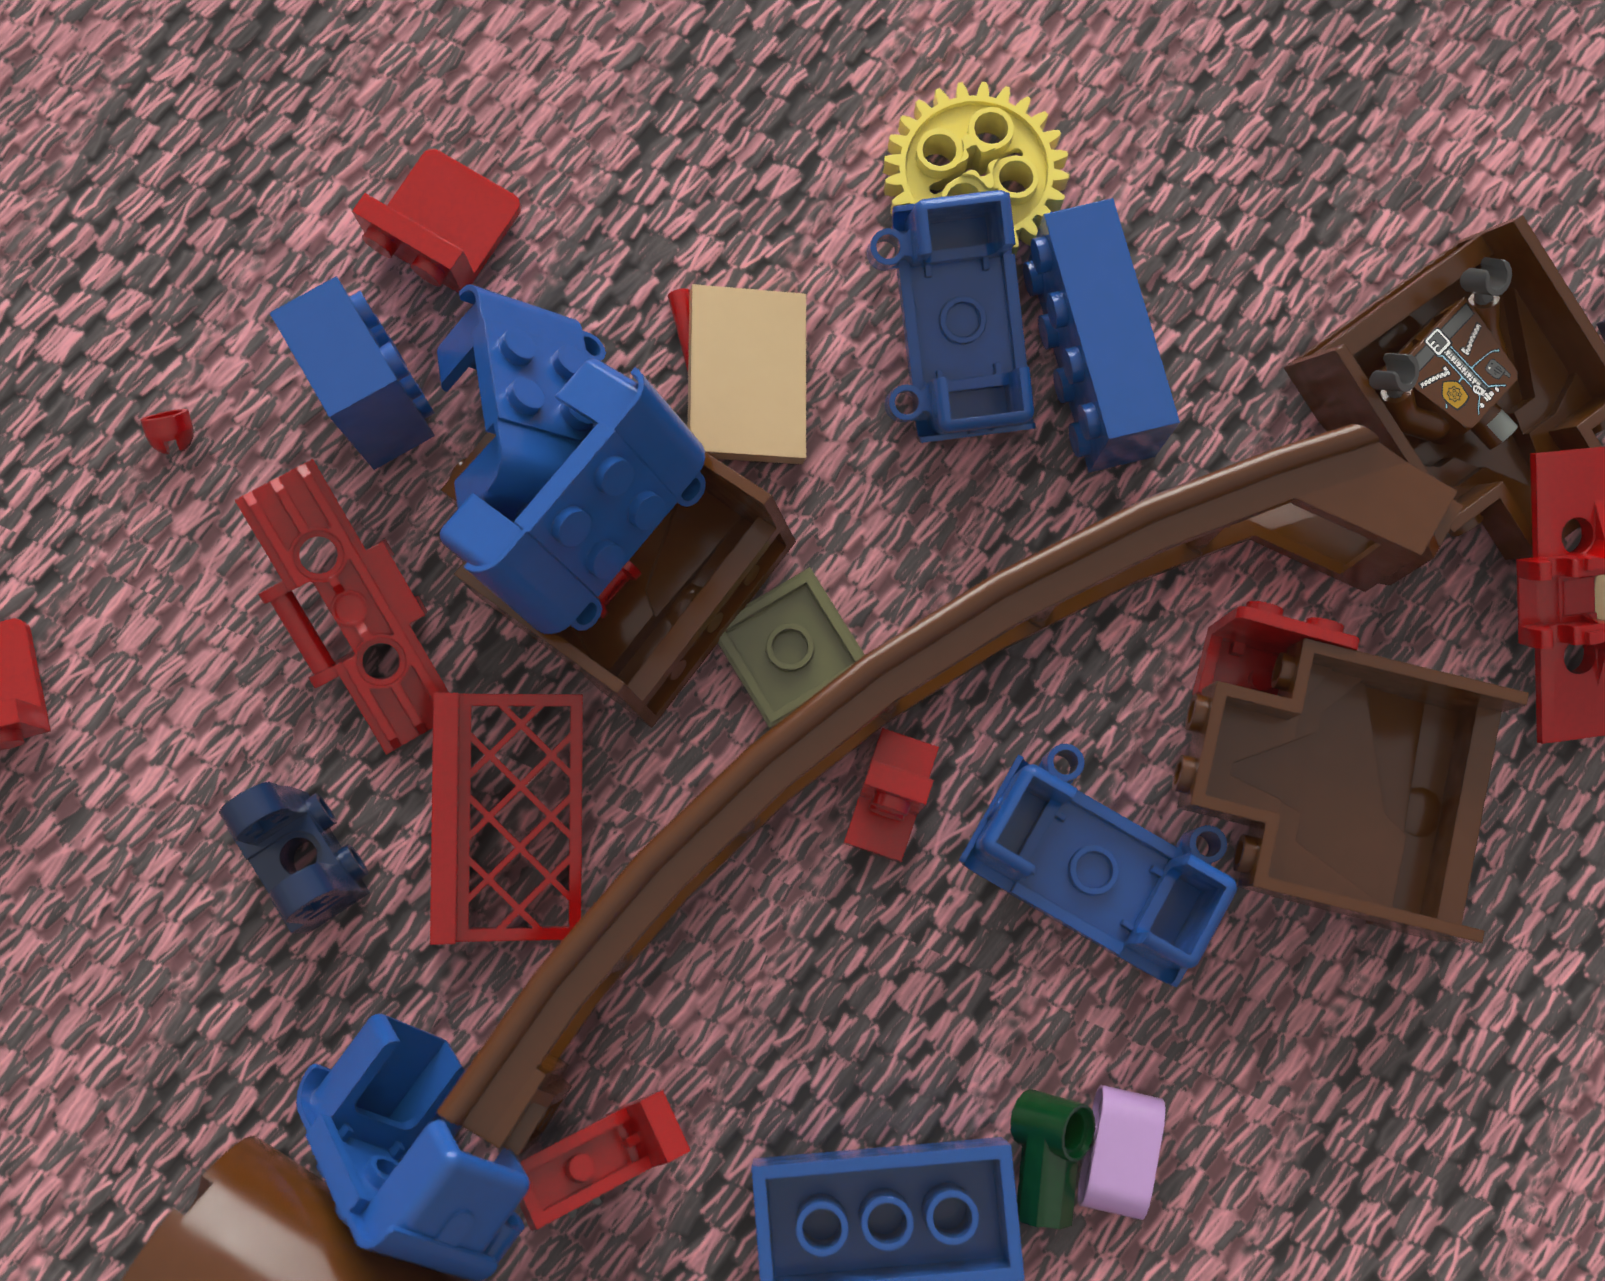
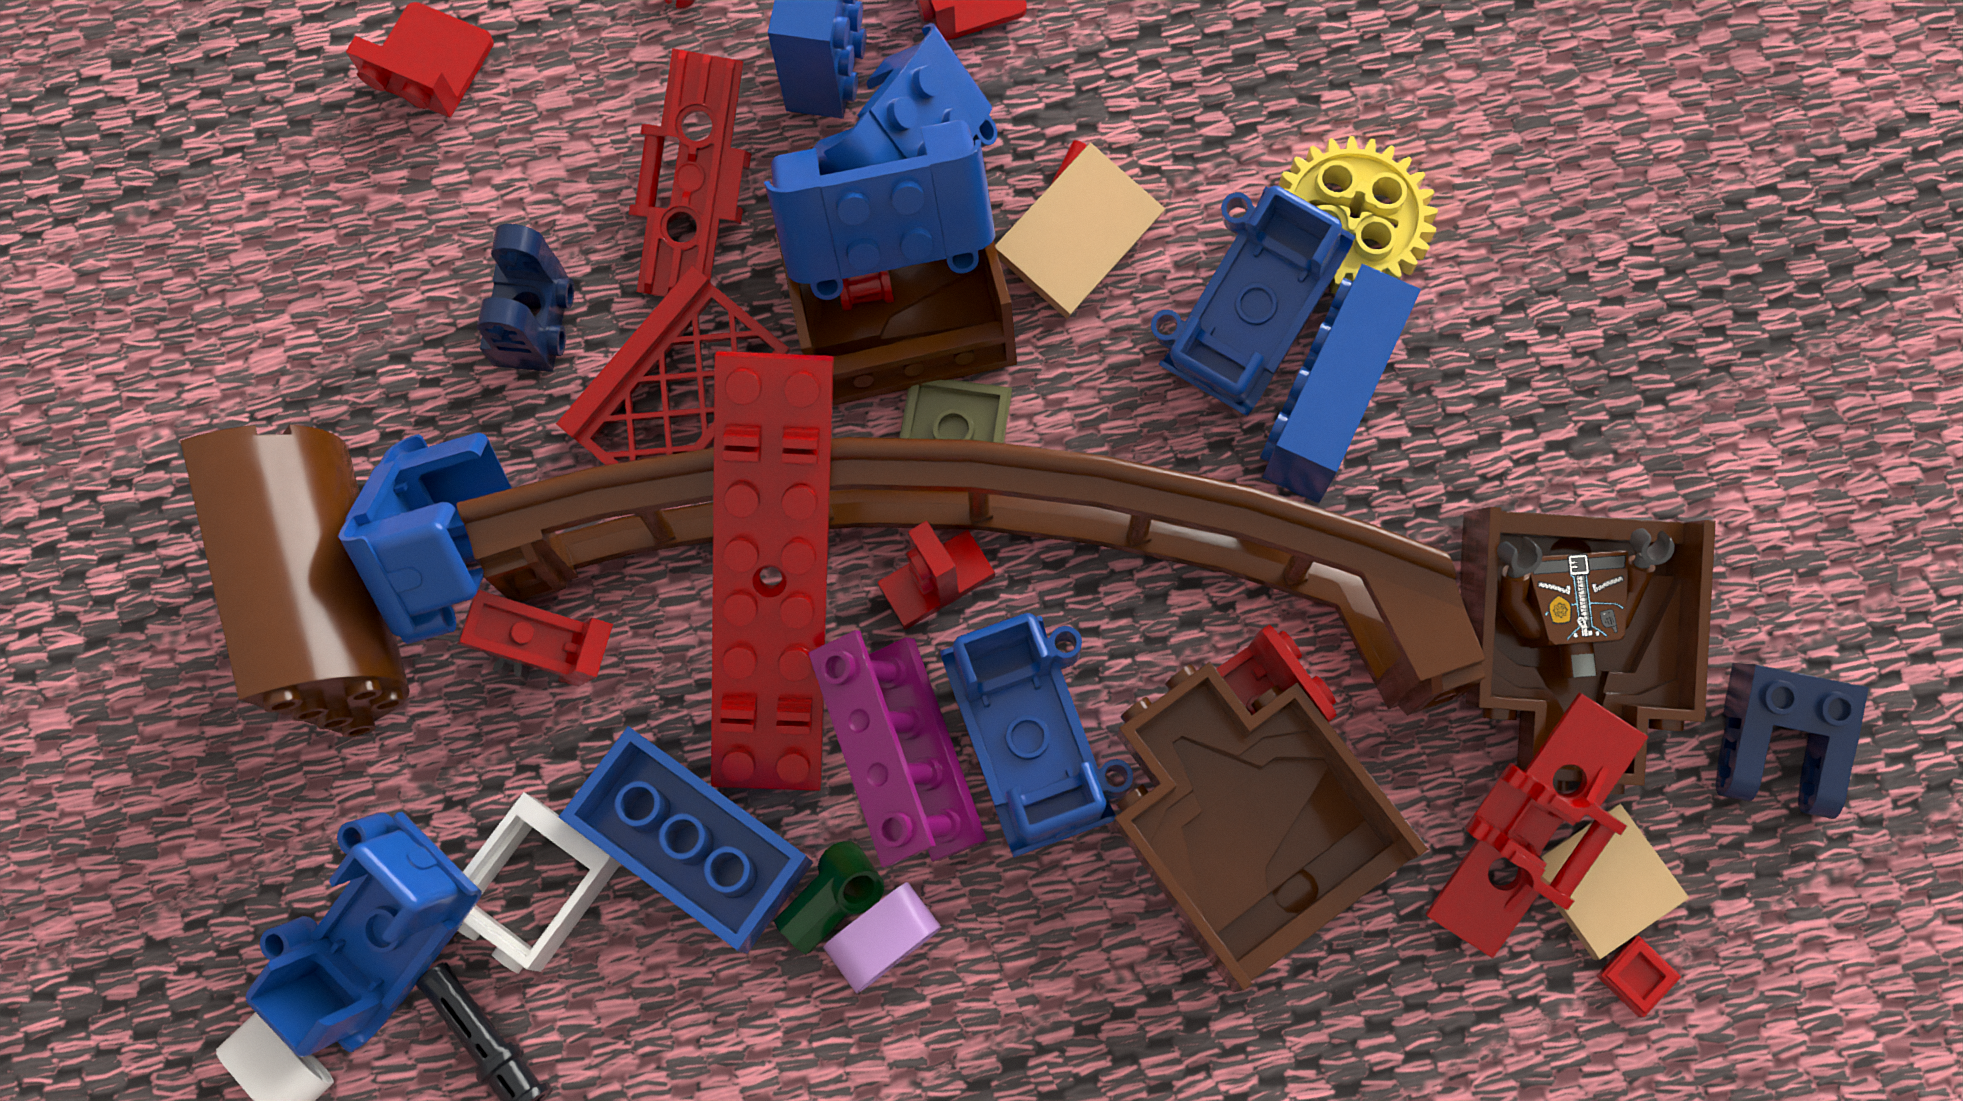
camera: 45 degrees right, 5 degrees down
(735, 869) = (767, 514): none -> red piece
(1007, 983) = (897, 749): none -> magenta fence

